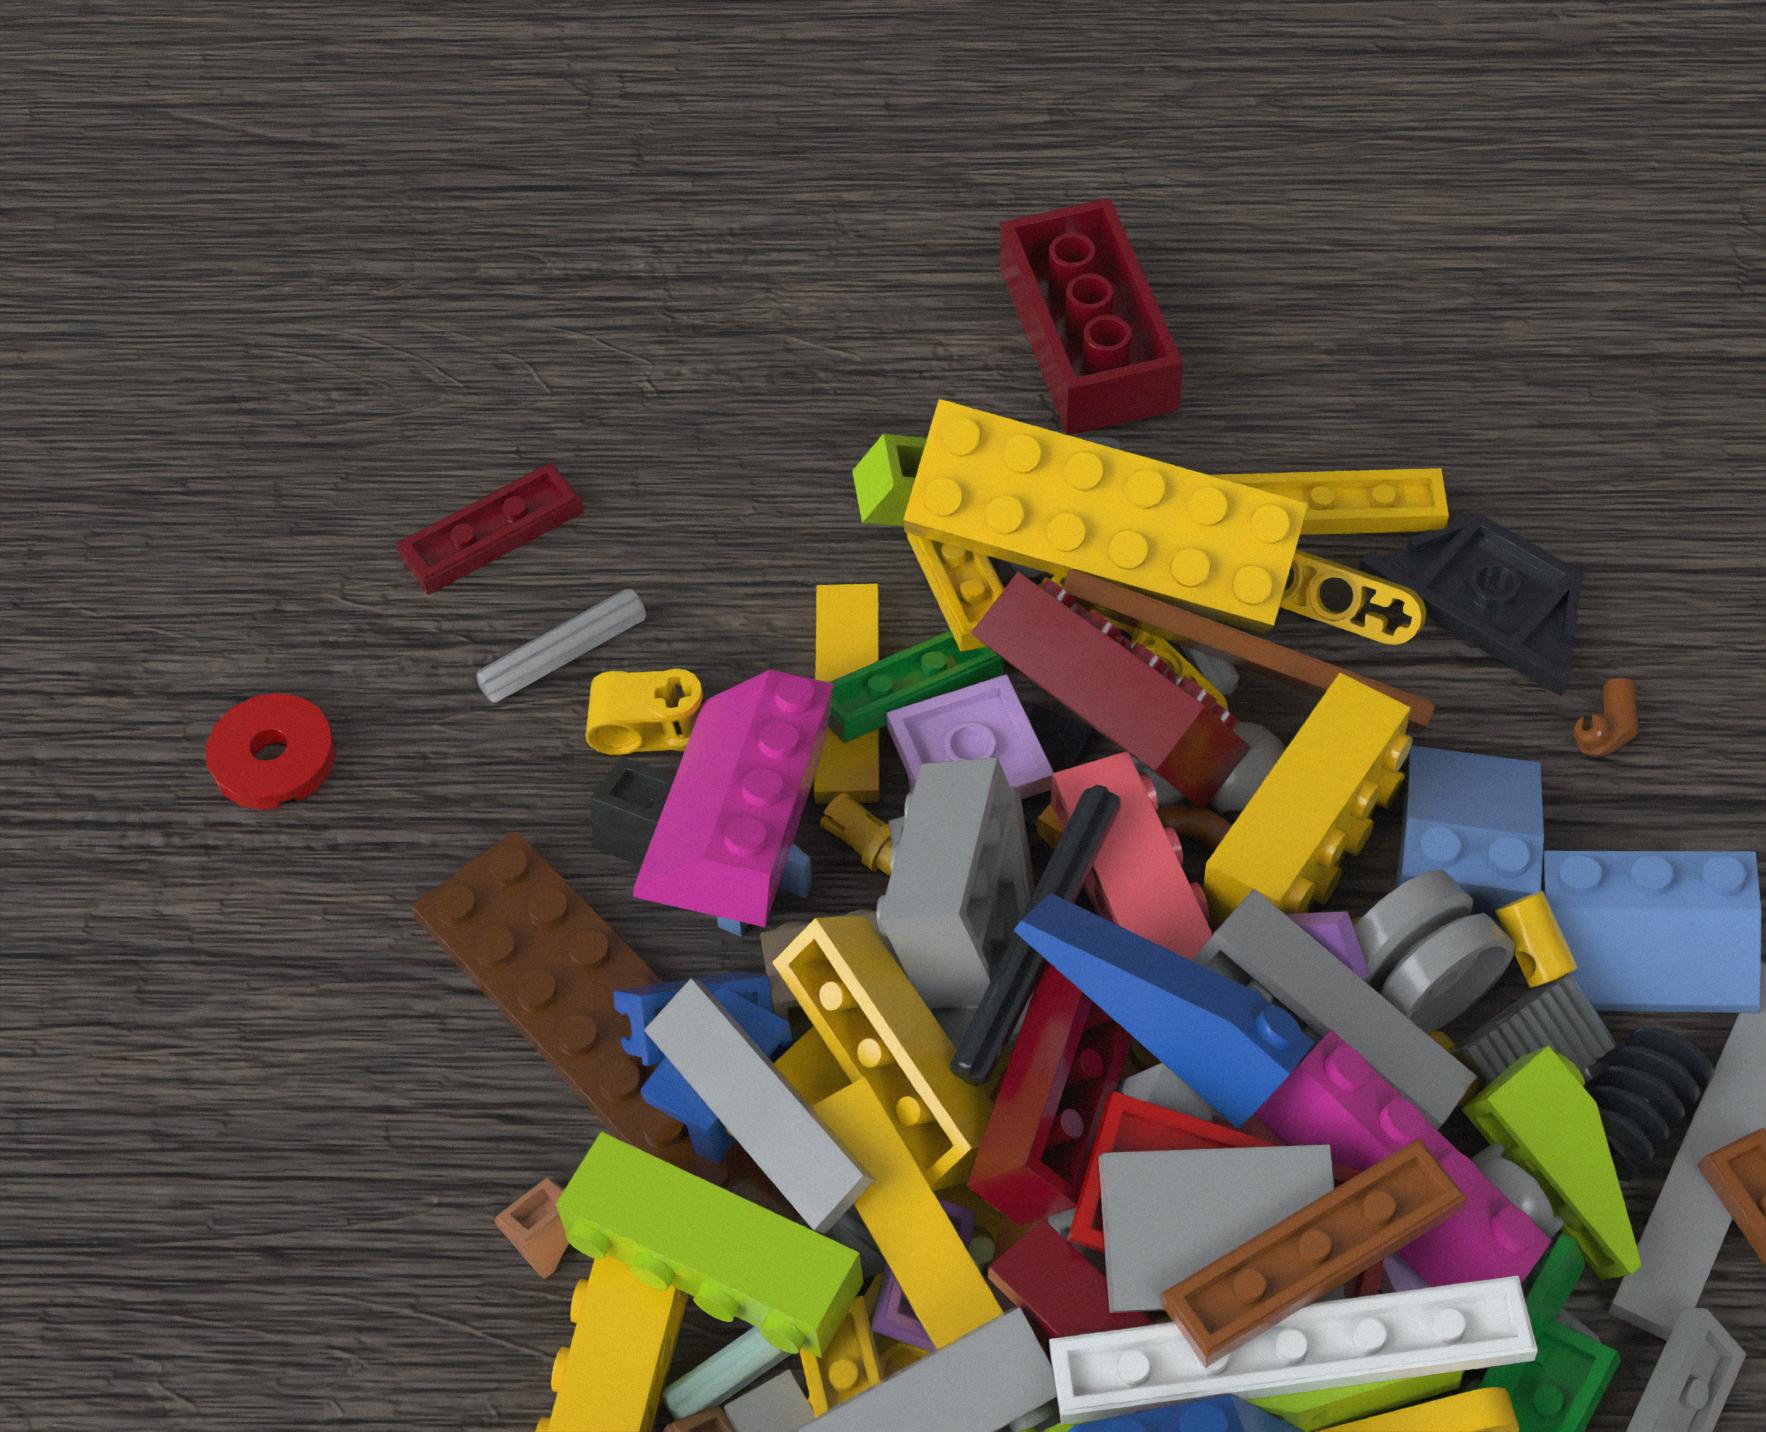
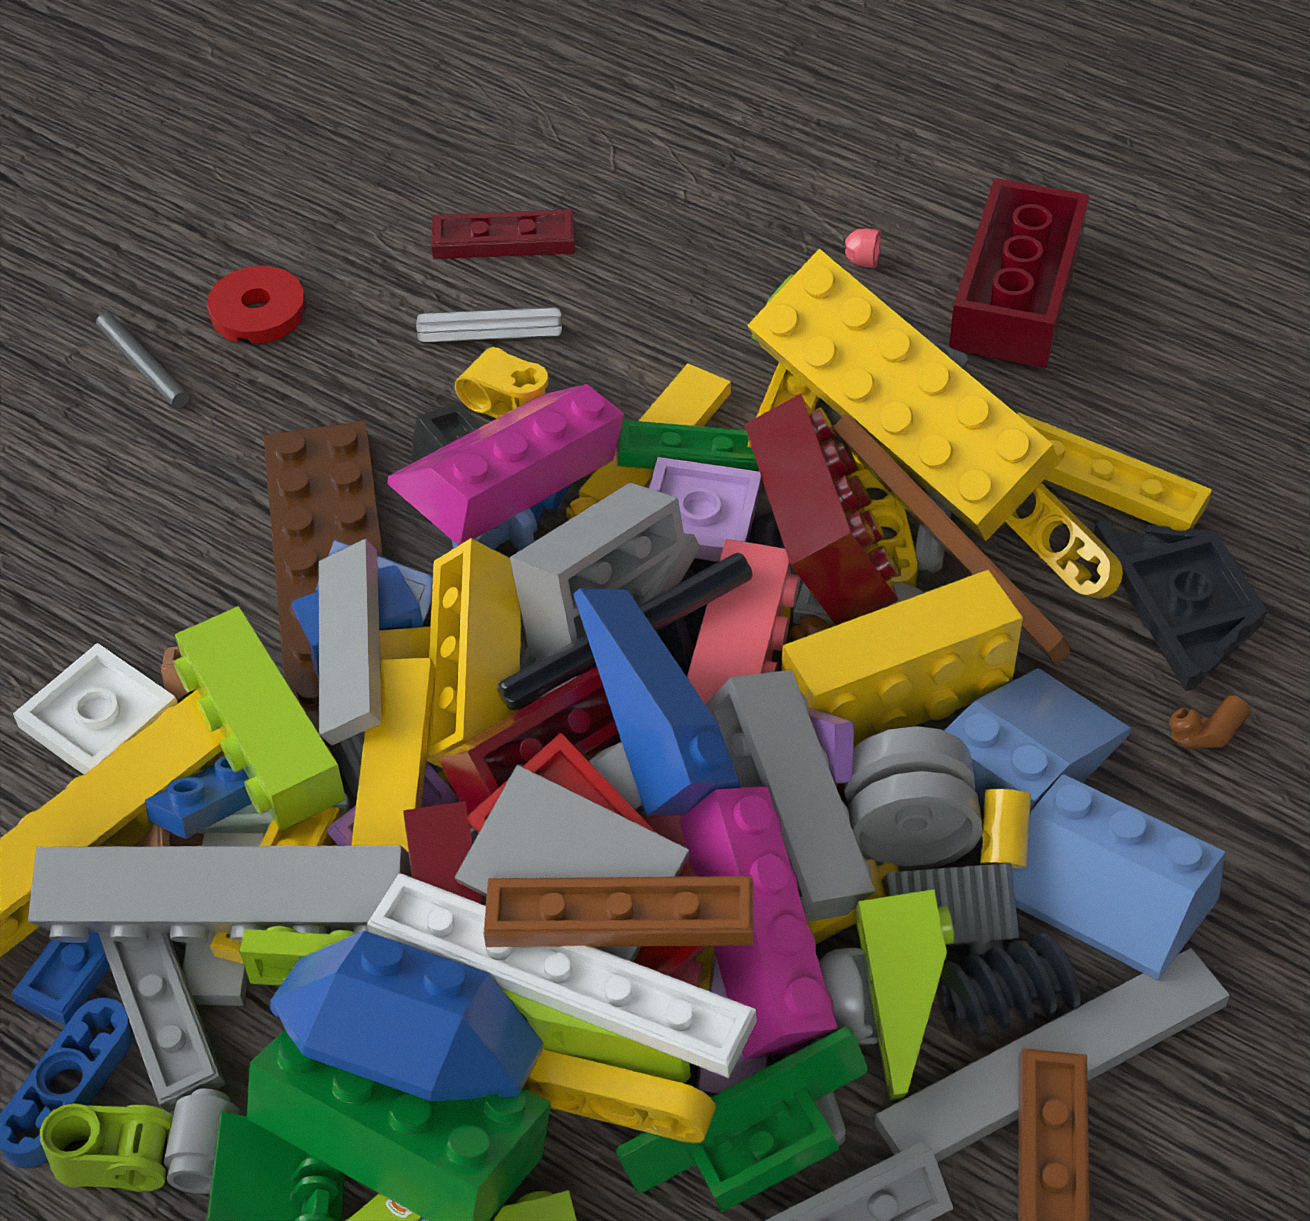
camera: 30 degrees right, 5 degrees down
(185, 886) = (142, 360): none -> dark grey bar
(482, 1338) = (93, 708): none -> white plate
(697, 1369) = (199, 800): none -> blue hinge
(899, 360) = (863, 247): none -> coral hinge

